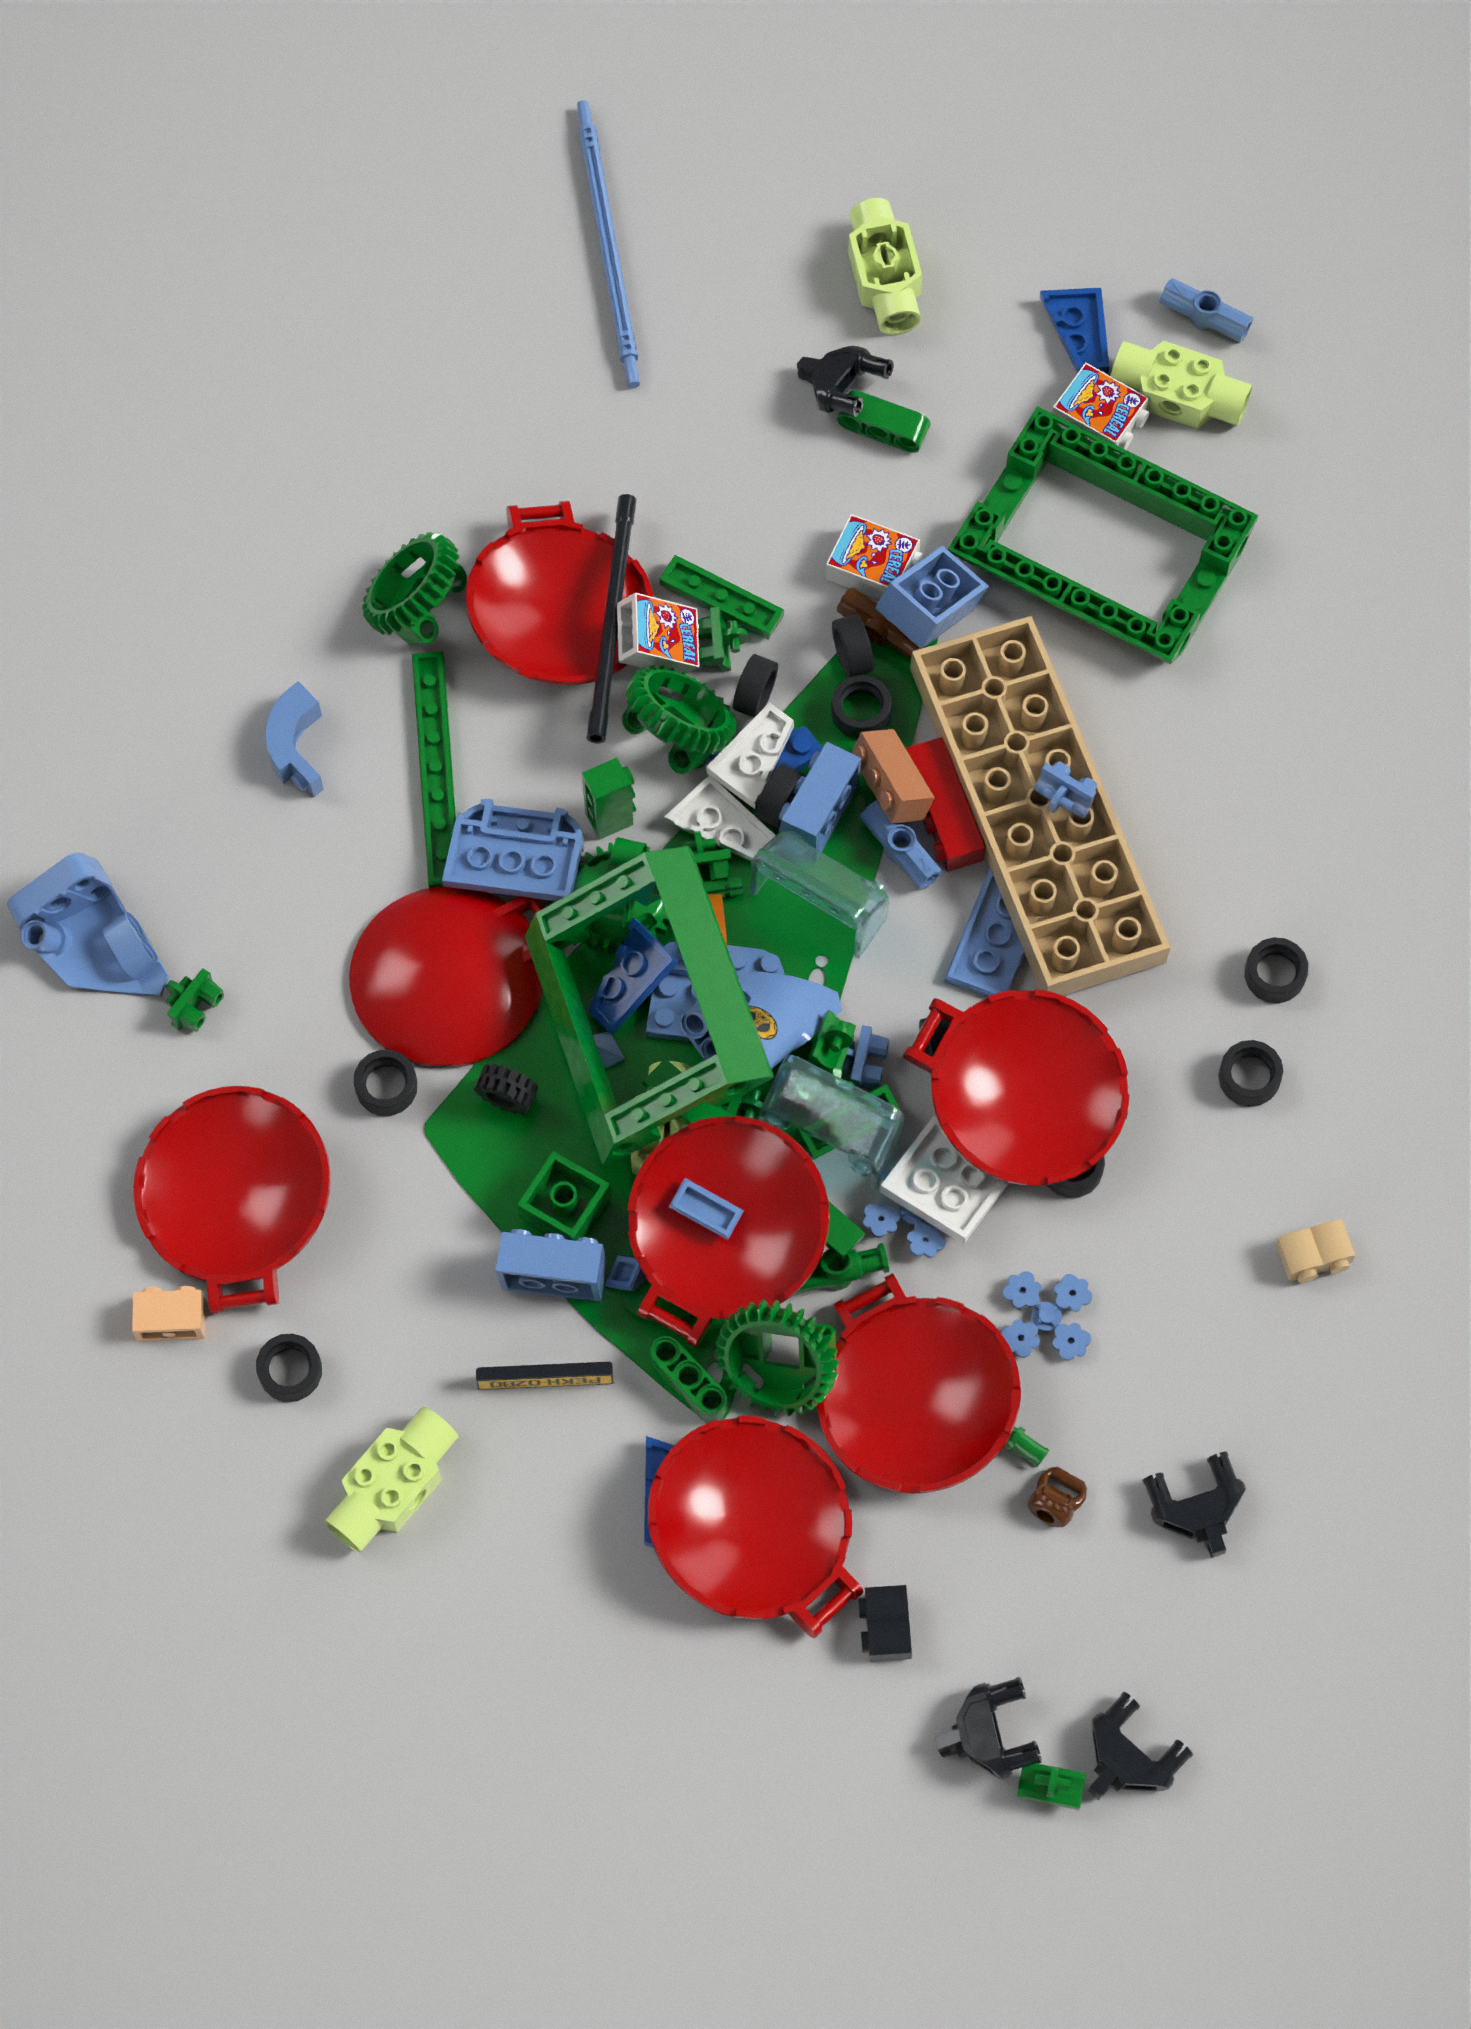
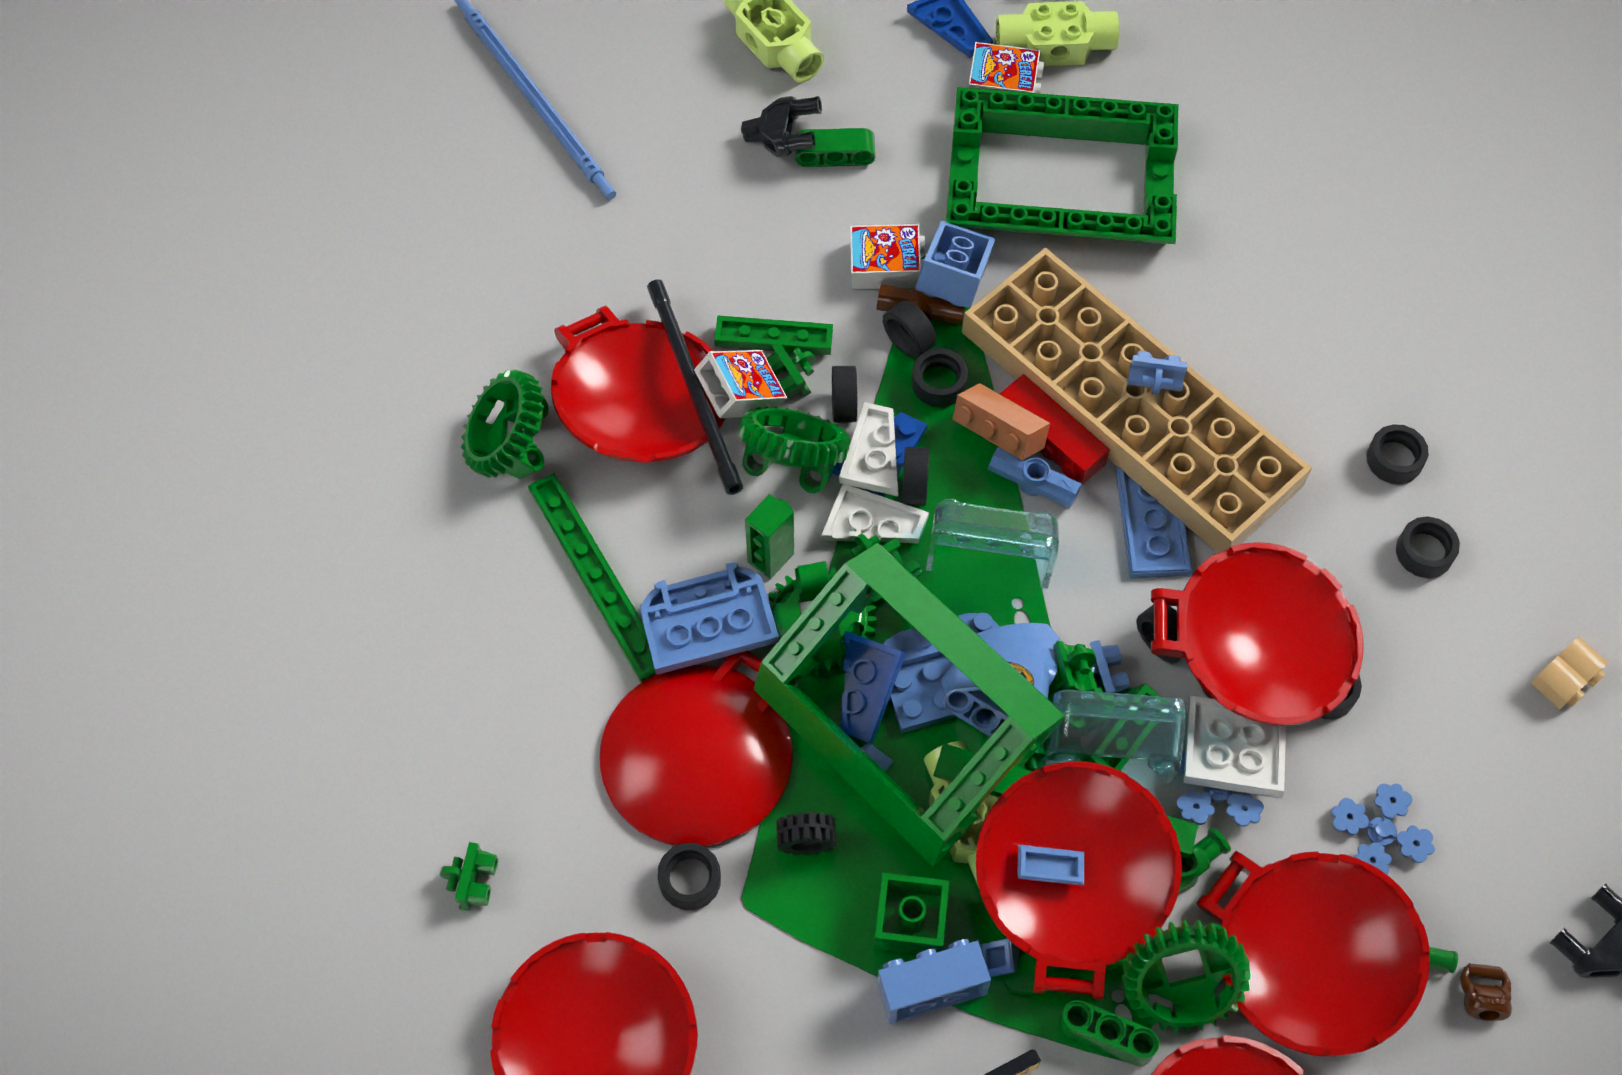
camera: 25 degrees left, 5 degrees down
(86, 930) = (340, 853): medium blue panel -> none
(286, 722) = (443, 584): medium blue arch -> none
(822, 795) = (950, 459): medium blue brick -> none

